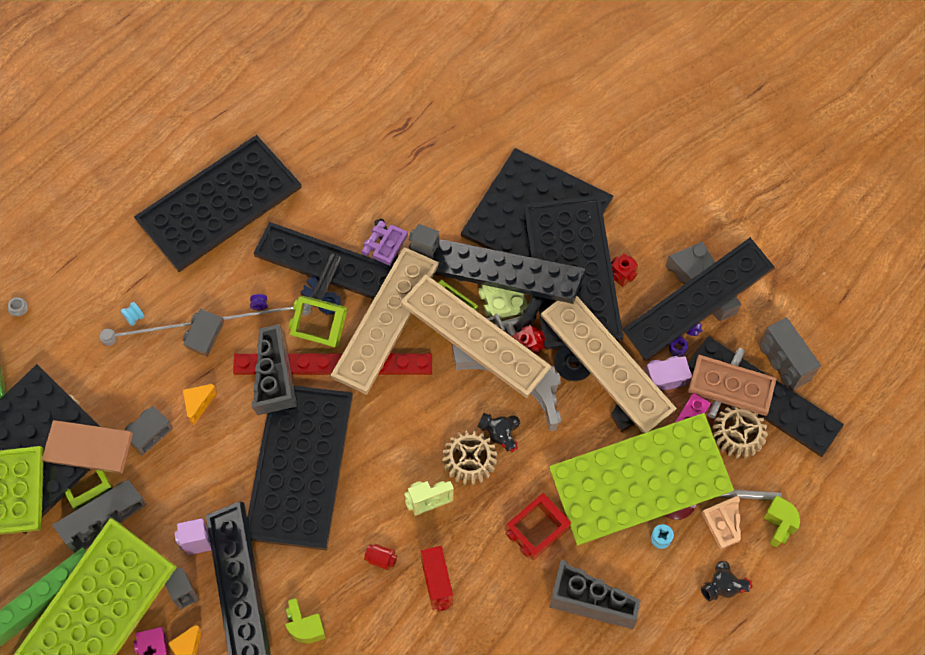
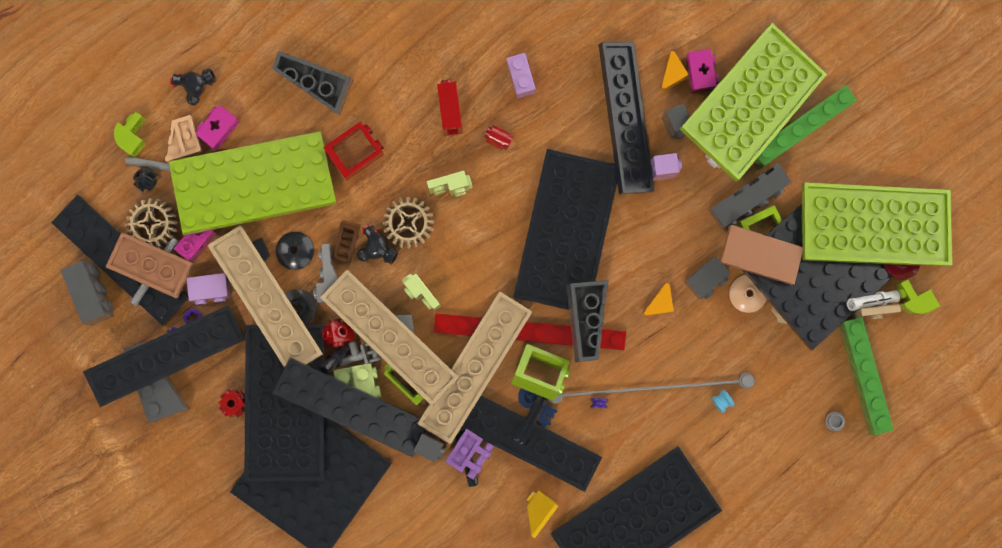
camera: 175 degrees left, 20 degrees up
(114, 416) = (739, 298): none -> light nougat dish
(203, 332) = (653, 372): dark grey brick -> none
(303, 629) = (572, 79): lime brick -> none
(310, 199) = (539, 509): none -> yellow slope
(360, 626) = (520, 75): none -> lavender brick
(450, 386) = (417, 289): none -> yellowish green plate
(531, 447) = (346, 224): none -> reddish brown slope
(584, 430) = (304, 252): none -> black dish
(659, 540) = (244, 135): medium azure wheel -> none
(695, 527) = (215, 137): none -> dark pink brick
(755, 474) = (145, 179): none -> black gear

